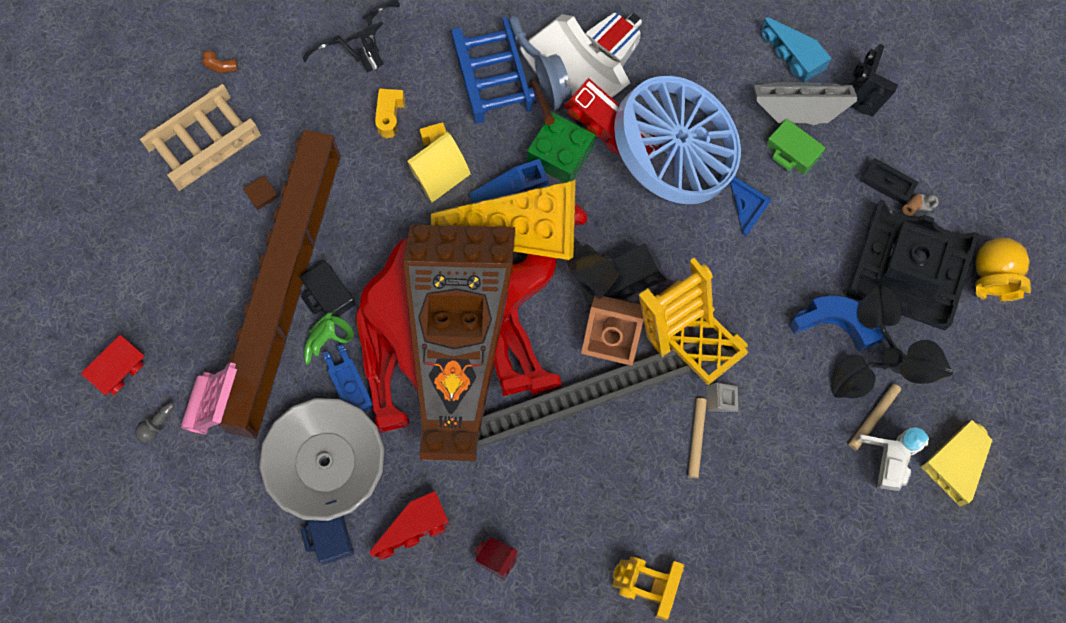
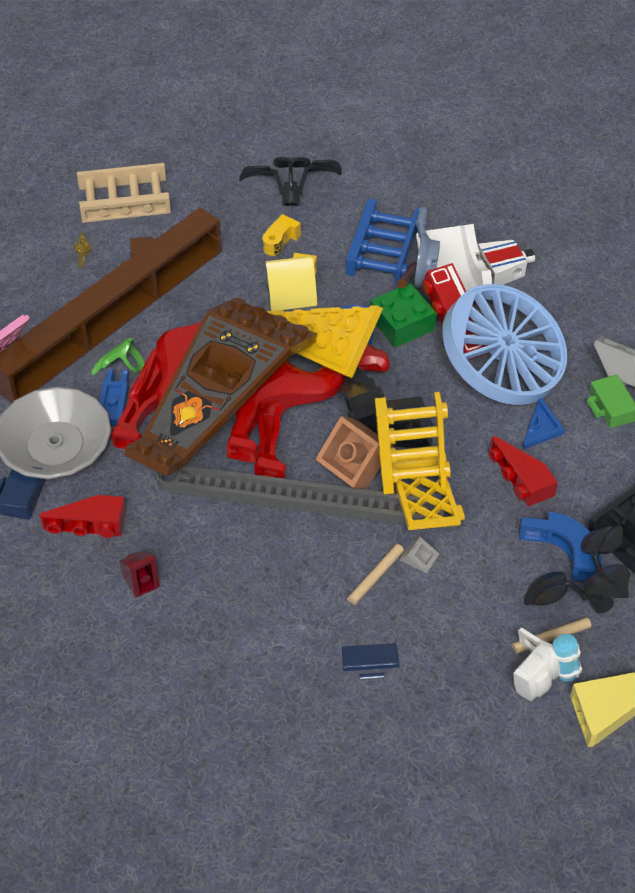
camera: 30 degrees right, 20 degrees down
(201, 225) = (82, 249): none -> clear yellow piece
(210, 62) = (170, 155): dark orange arm -> none
(326, 290) = (143, 329): black piece -> none
(663, 588) = (244, 639): yellow tile -> none
(741, 523) = (370, 657): none -> dark blue piece
(768, 266) = (528, 475): none -> red slope

